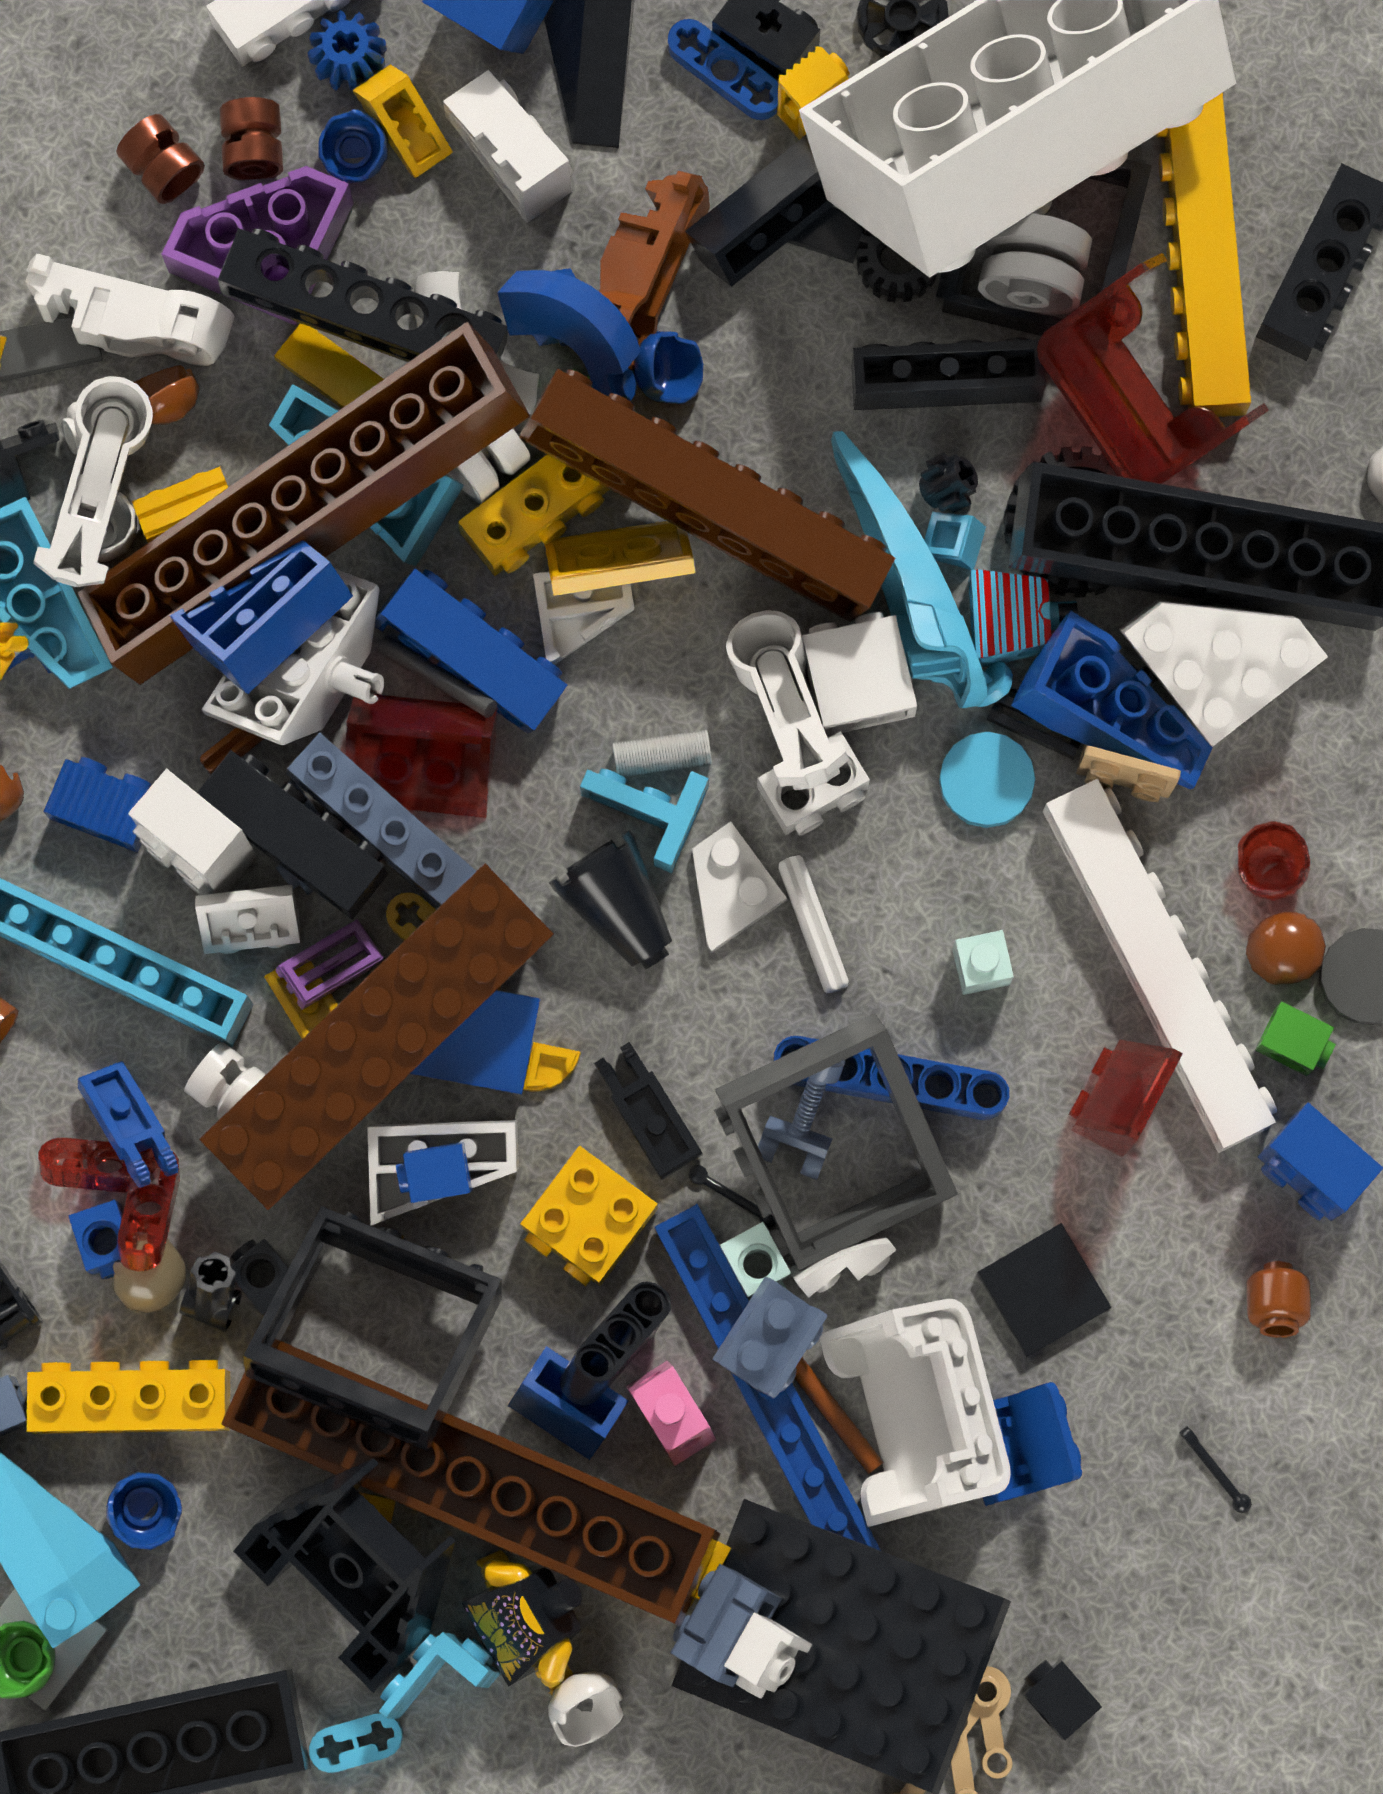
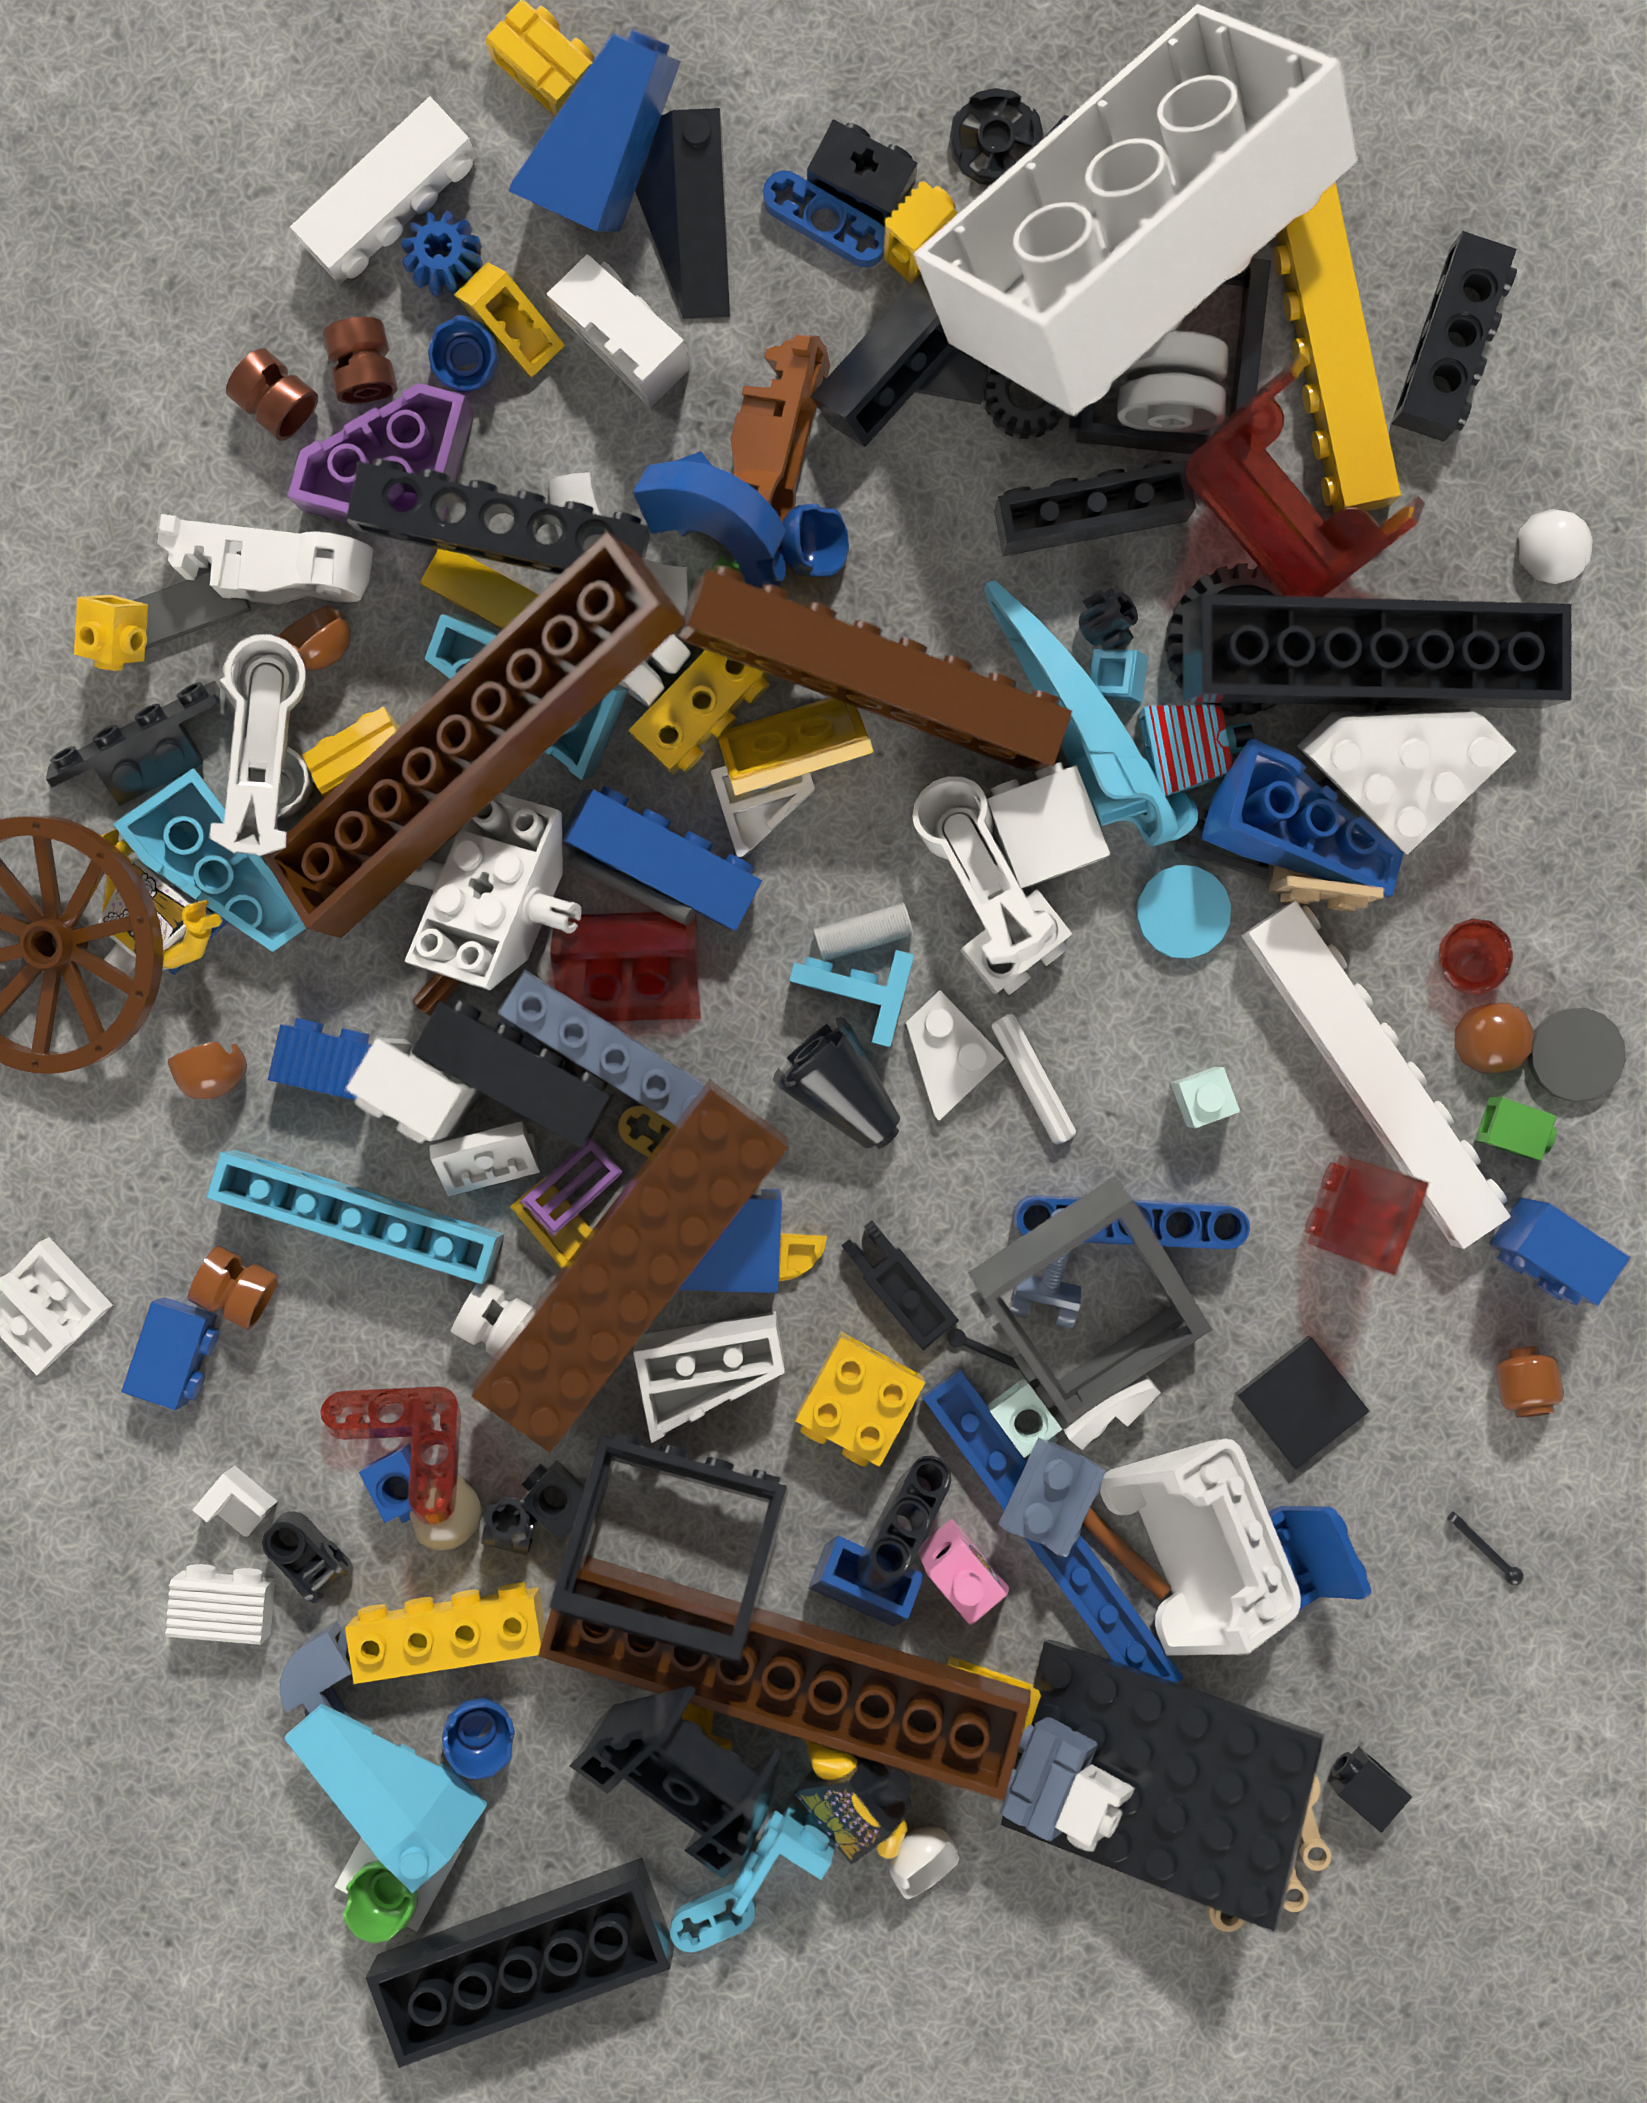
camera: 20 degrees left, 10 degrees up
(127, 1120) = (399, 1368): blue hinge -> none
(266, 616) = (452, 862): blue wedge -> none
(434, 1172) = (706, 1391): blue brick -> none

